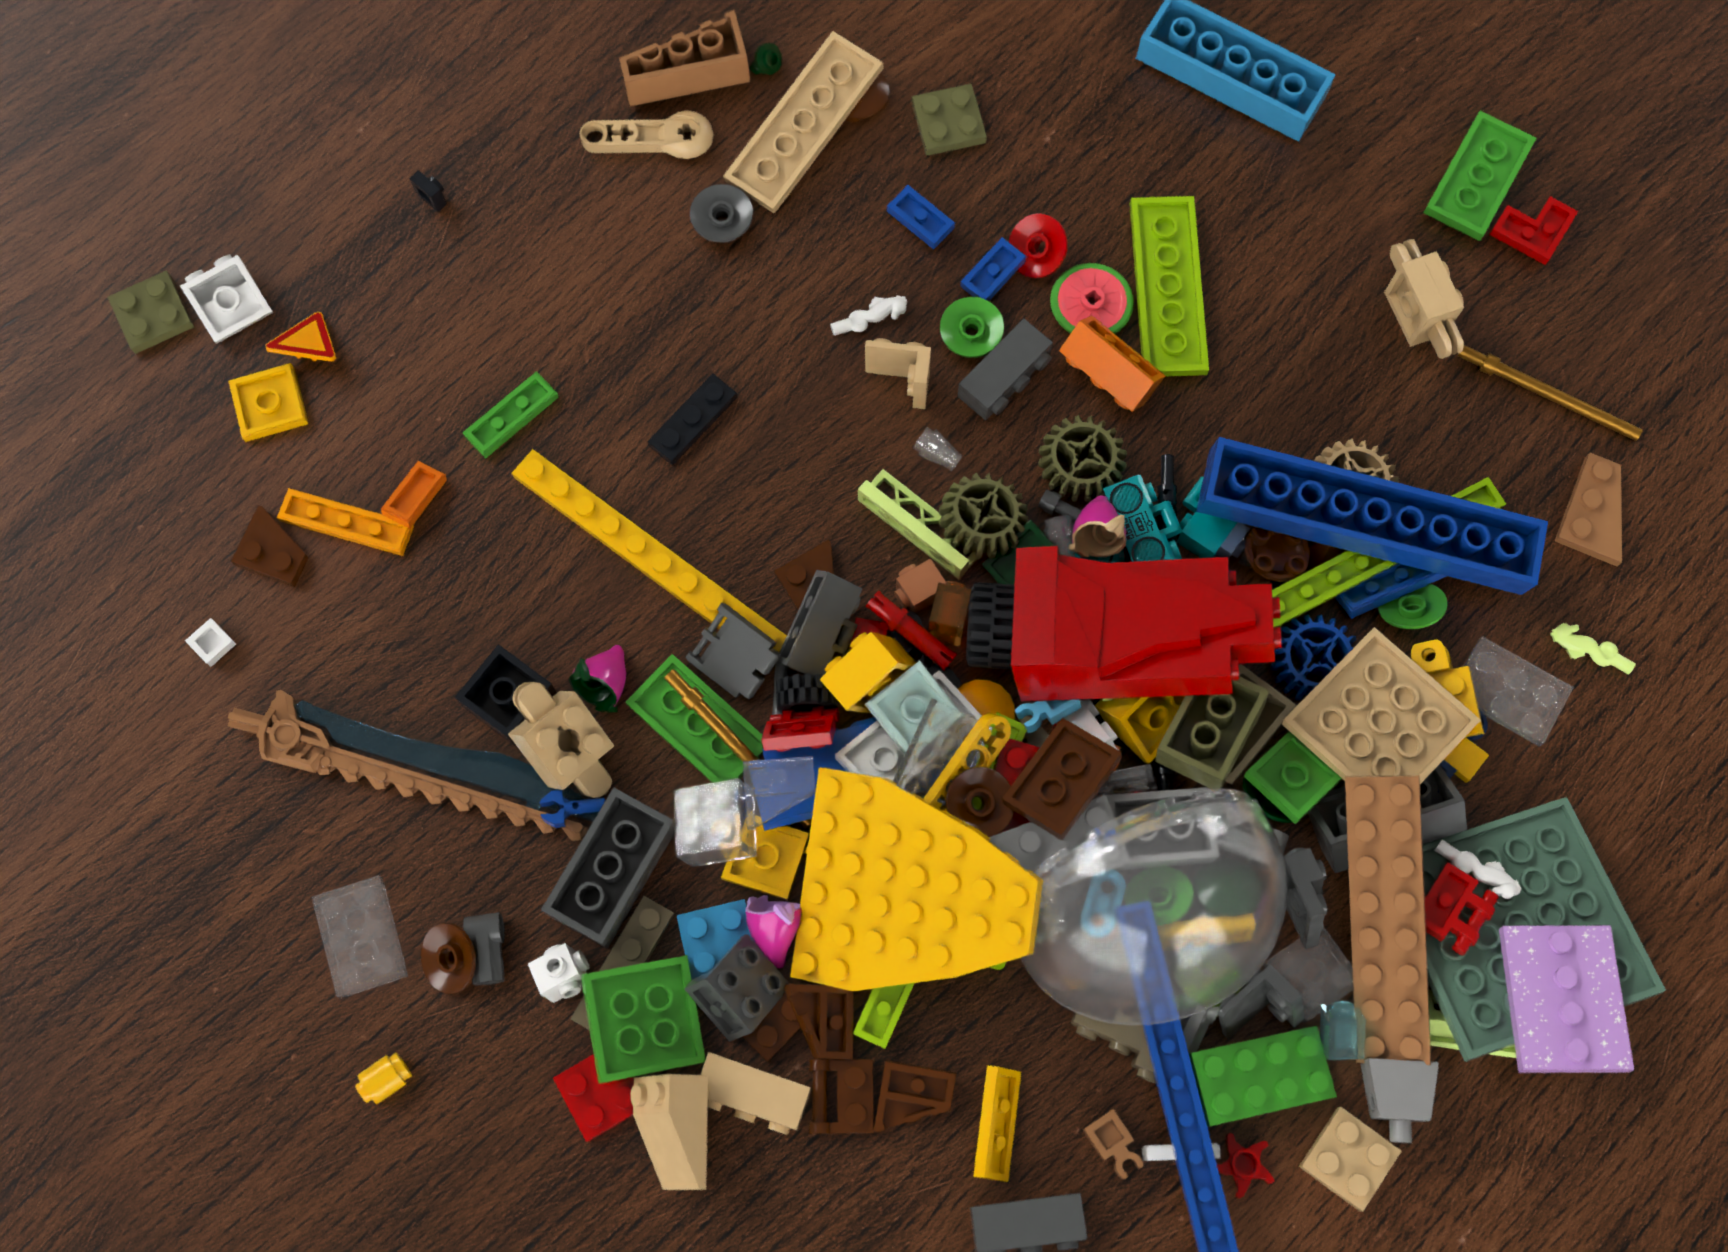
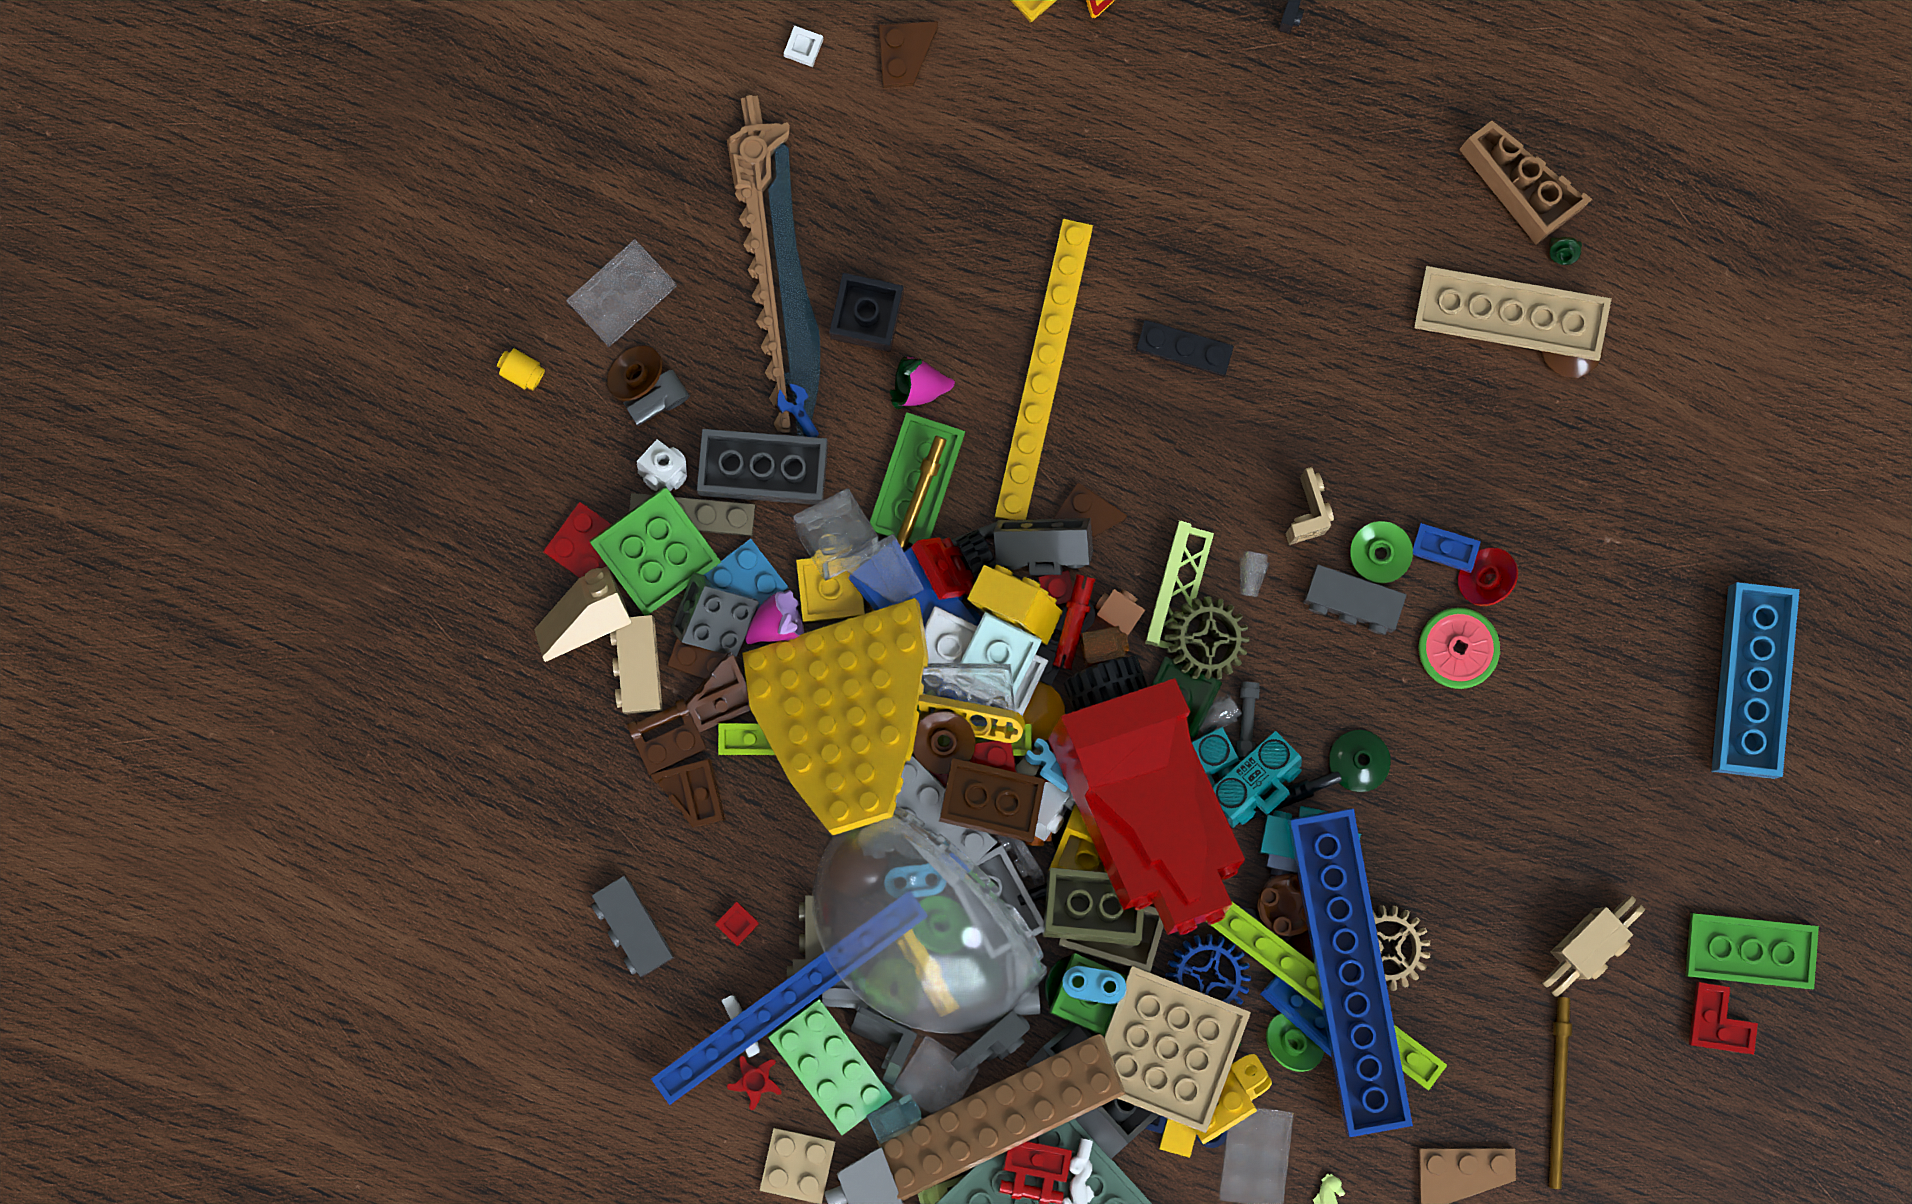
camera: 65 degrees right, 10 degrees up
(344, 522) = (957, 100): light orange tile -> none
(413, 494) = (1006, 146): orange tile -> none
(510, 415) = (1117, 190): bright green tile -> none
(561, 739) = (847, 377): tan brick -> none
(652, 135) = (1441, 186): tan beam -> none
(721, 201) = (1396, 268): dark grey dish -> none
(735, 653) = (988, 485): dark grey plate -> none
(878, 310) = (1362, 463): white animal -> none
(920, 217) = (1470, 460): blue plate -> none
(948, 119) = (1582, 441): olive plate -> none
(997, 1123) = (699, 870): yellow plate -> none
(1070, 1108) = (737, 924): none -> red plate
(1093, 465) = (1299, 717): olive gear -> none
(1098, 530) = (1232, 741): tan hat -> none
(1110, 1139) = (727, 965): medium nougat plate -> none
(1111, 363) = (1401, 690): orange brick -> none
(1154, 443) = (1344, 759): none -> dark green dish
(1169, 285) = (1505, 710): lime plate -> none
(1290, 762) = (1094, 984): none -> medium azure plate

